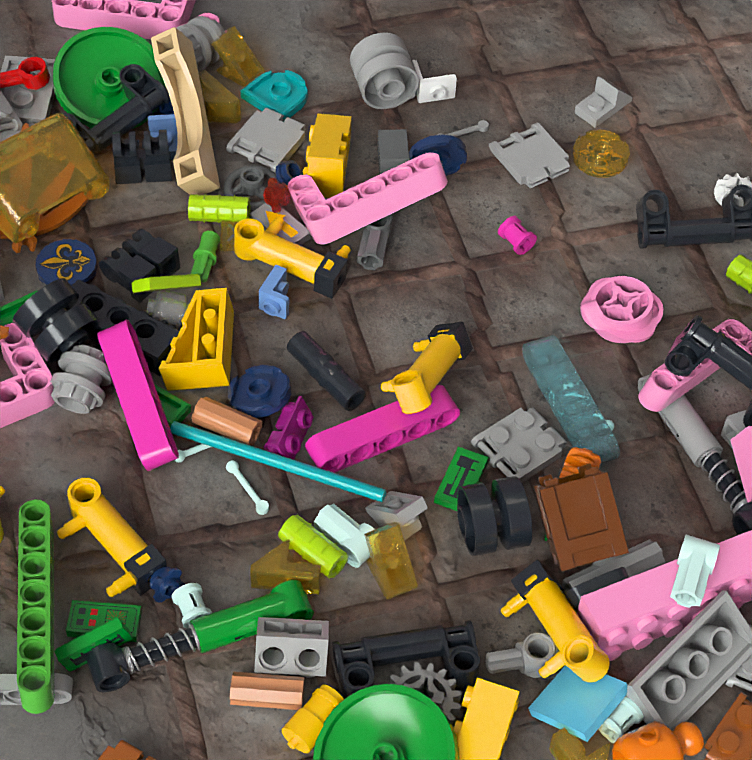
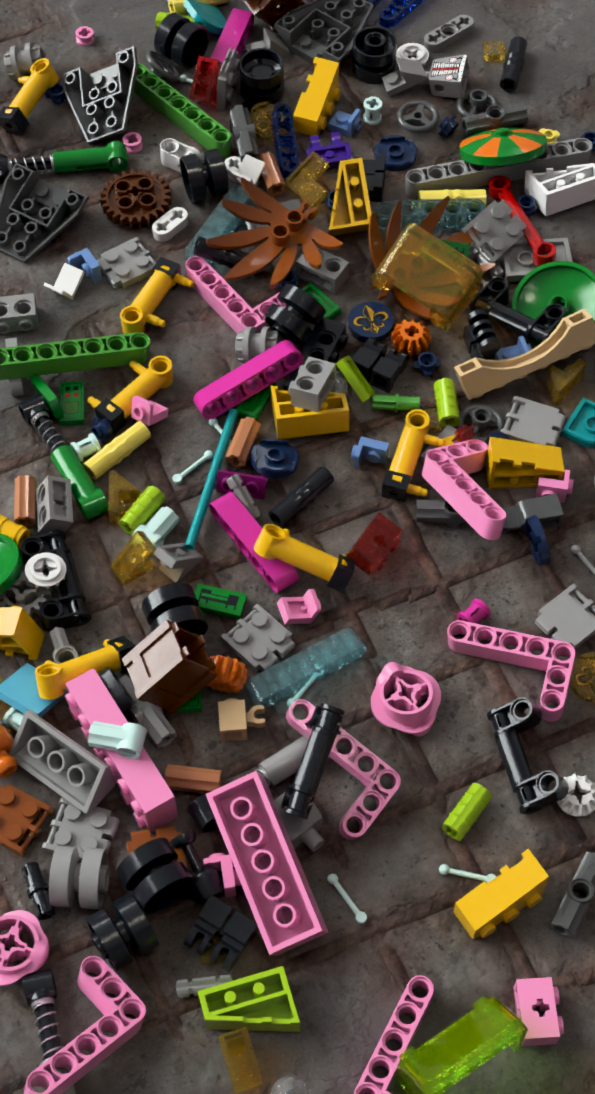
camera: 85 degrees right, 5 degrees up
(110, 225) = (411, 337): none -> orange gear
(150, 219) = (427, 358): none -> dark blue plate
(154, 520) = (147, 411): none -> bright pink bracket
(182, 313) = (312, 384): none -> light grey brick
(204, 566) = (117, 450): none -> light yellow axle
(310, 426) = (243, 495): none -> light grey axle
(363, 130) = (551, 486): none -> bright pink bracket
(411, 305) = (379, 532): none -> clear red brick
(420, 651) = (35, 566): none -> white gear
(487, 391) = (299, 609): none -> bright pink bracket
(589, 170) = (520, 656): none -> bright pink beam
(634, 477) = (235, 720): none -> tan brick
(712, 519) = (192, 779): none -> nougat axle

